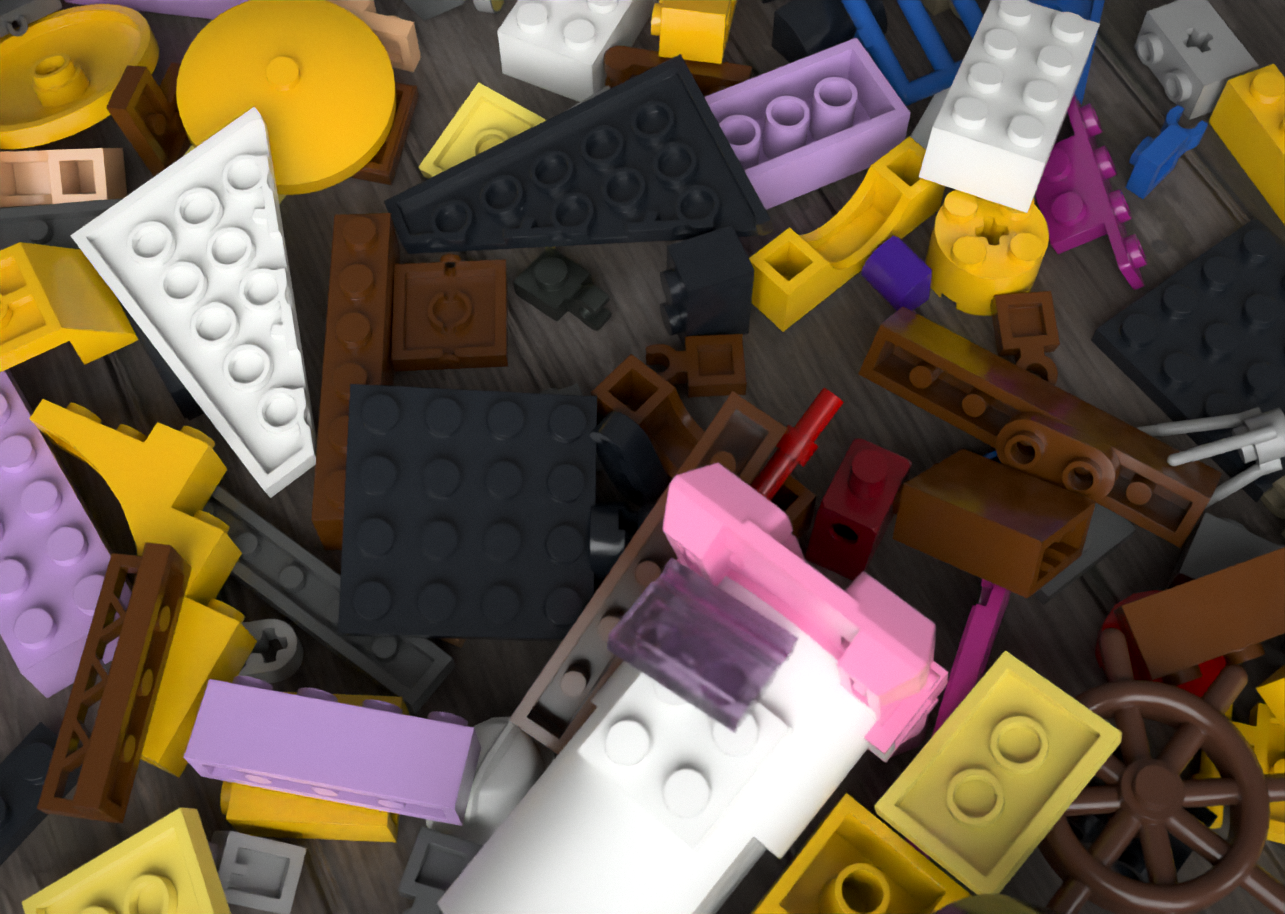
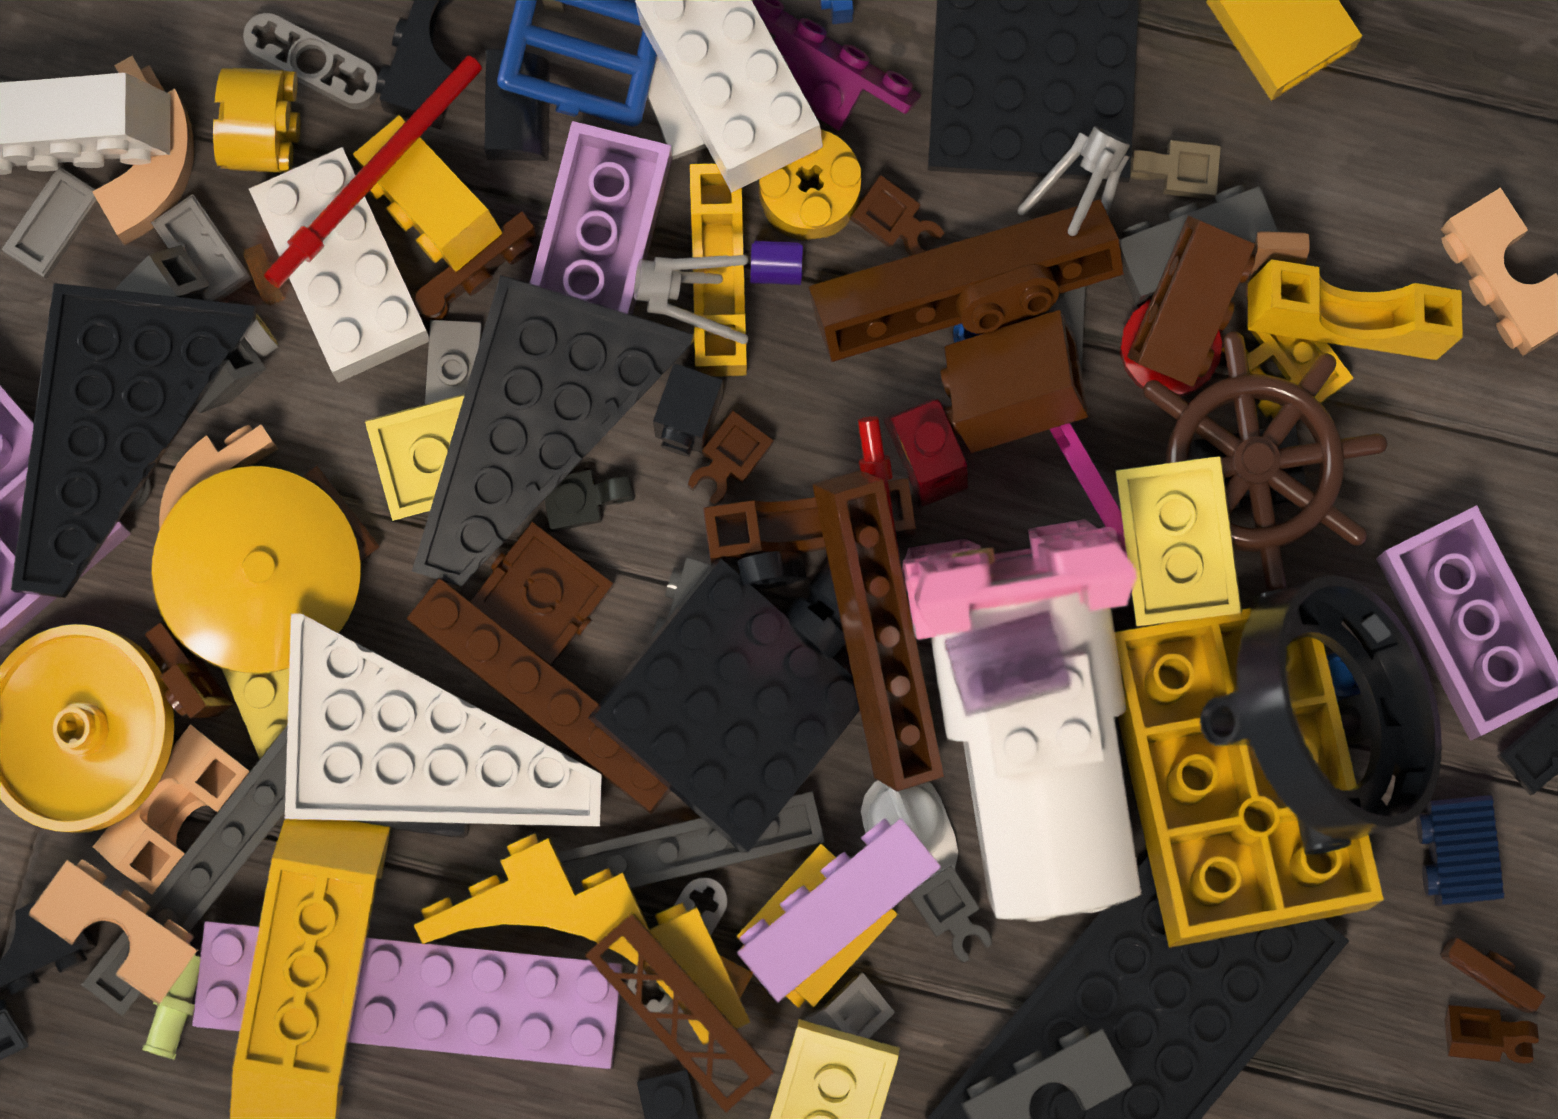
camera: 55 degrees left, 20 degrees up
(789, 173) = (661, 280): none -> light grey plant

